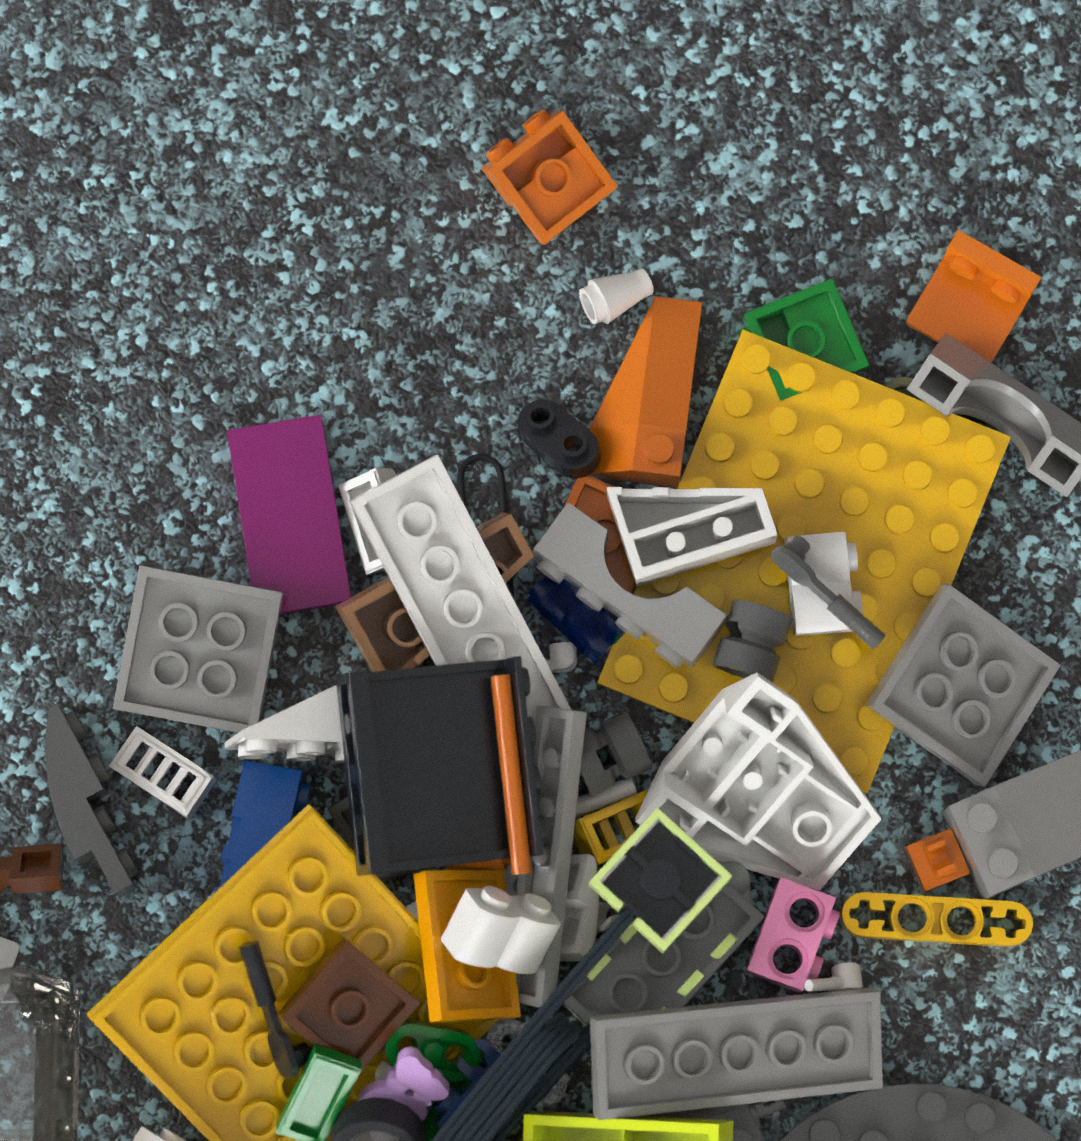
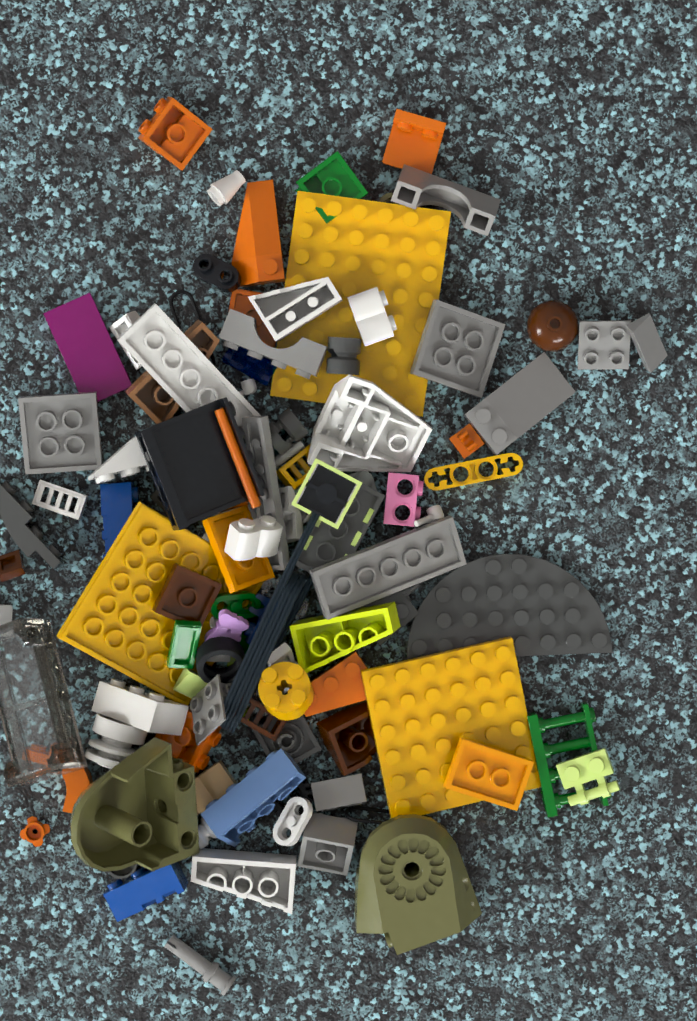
camera: 15 degrees left, 10 degrees up
(286, 1056) = (163, 629): black piece -> none
(791, 561) = (352, 310): dark grey piece -> none

